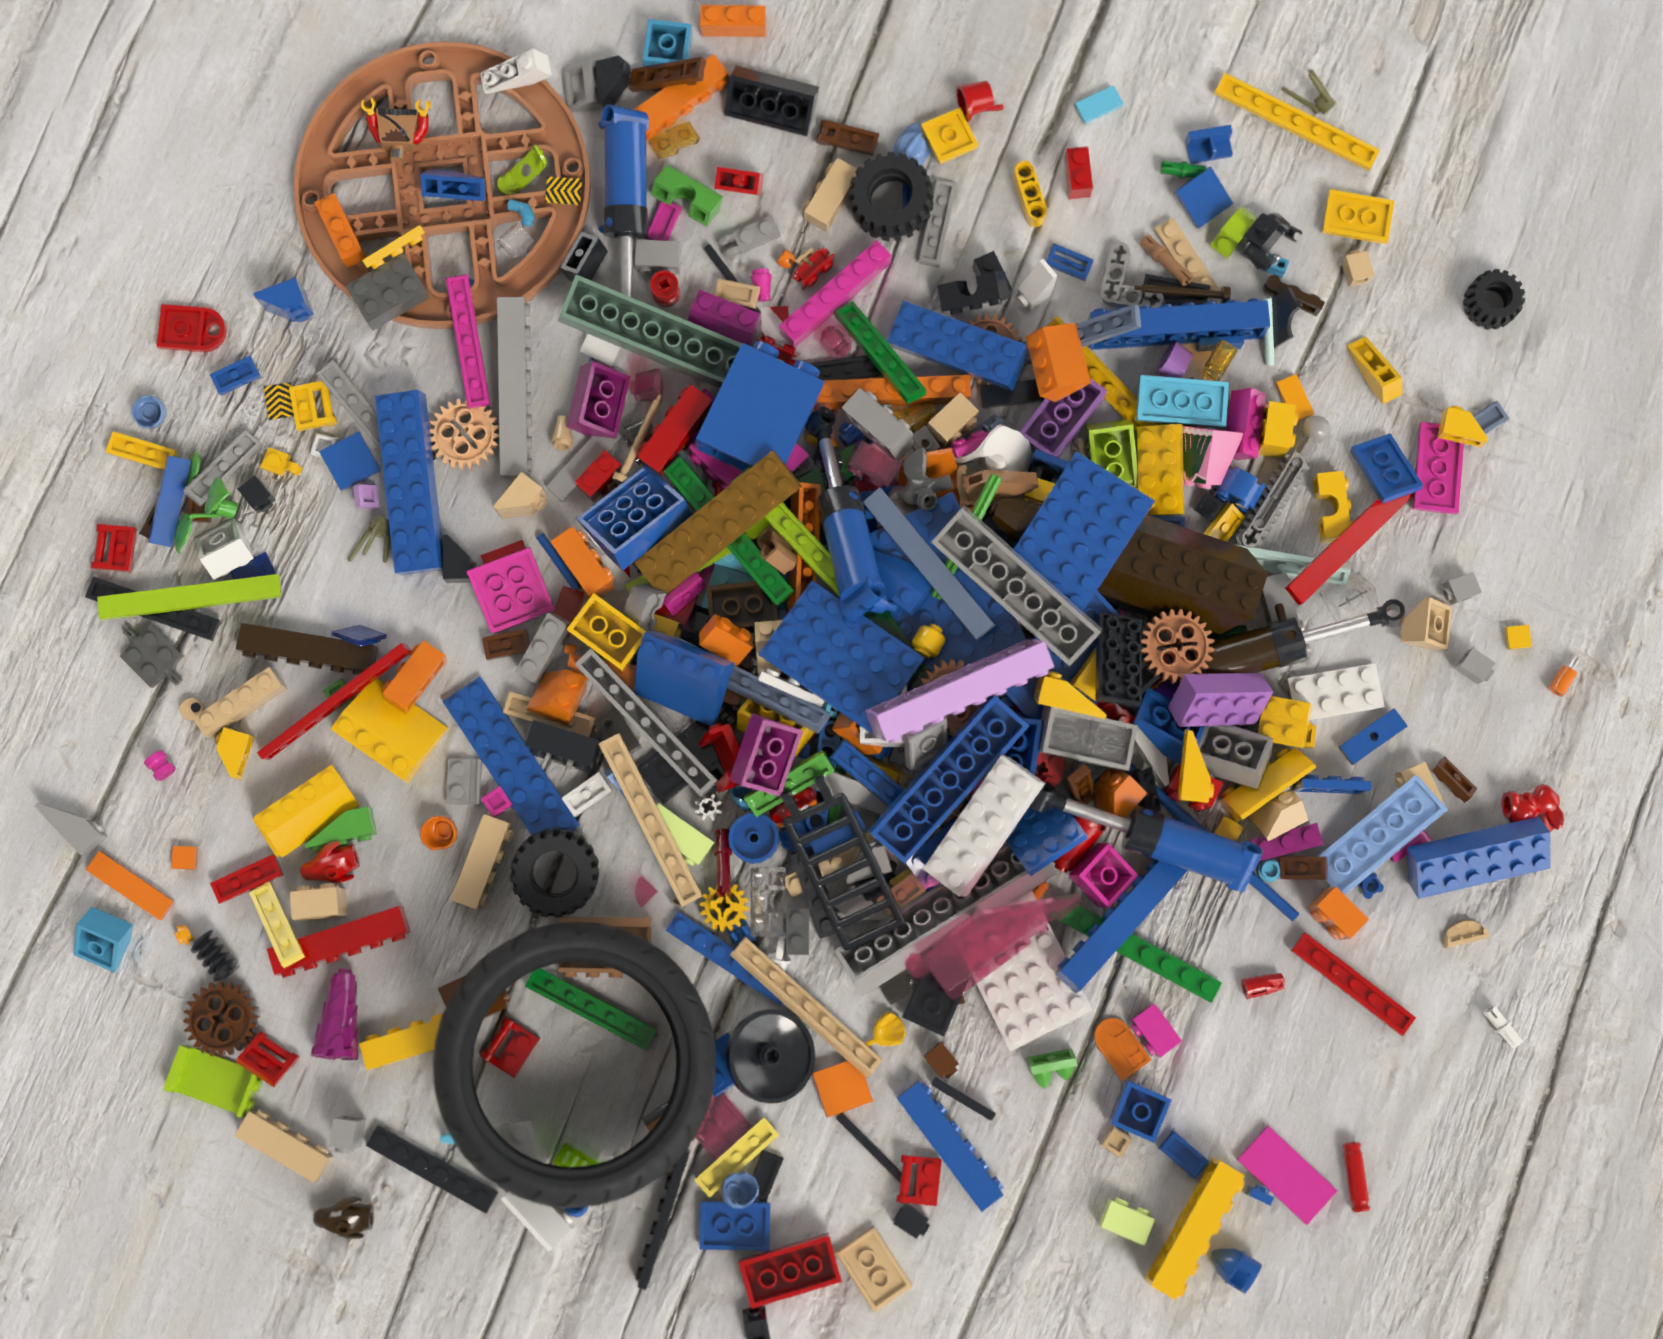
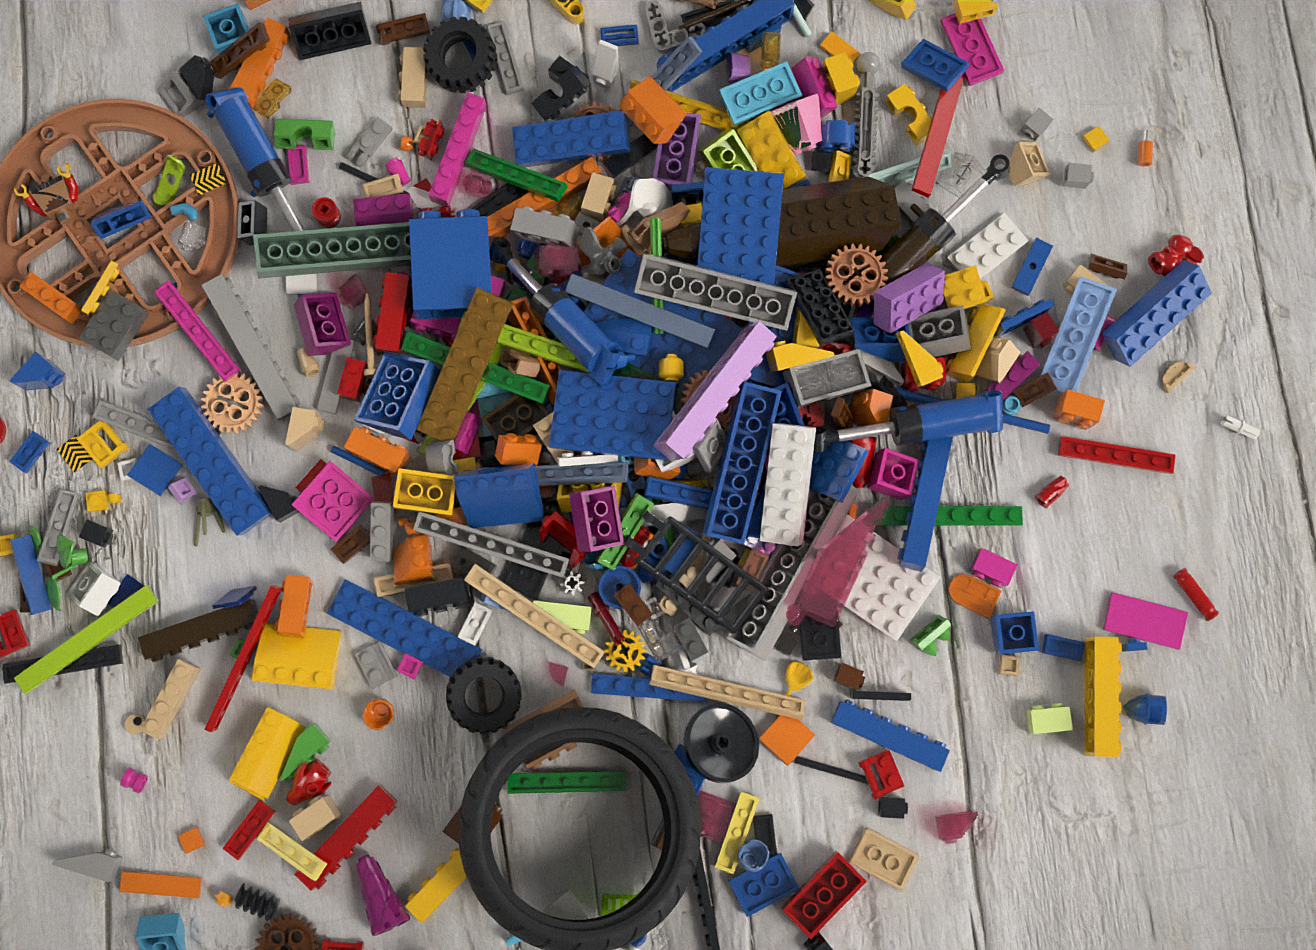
camera: 30 degrees left, 0 degrees up
(152, 656) = (82, 700): dark grey plate -> none
(234, 750) = (185, 737): yellow slope -> none
(482, 862) = (423, 718): tan brick -> none
(516, 72) = (123, 107): white slope -> none
(516, 1051) = (528, 845): red plate -> none
(657, 256) = (306, 191): light grey brick -> none
(739, 181) = (338, 102): red brick -> none
(757, 863) = (633, 604): none -> reddish brown plate
(966, 1275) = (954, 825): none -> clear pink slope
(1344, 809) = (1041, 330): none -> dark red brick
(1376, 886) = (1094, 376): blue plate -> none

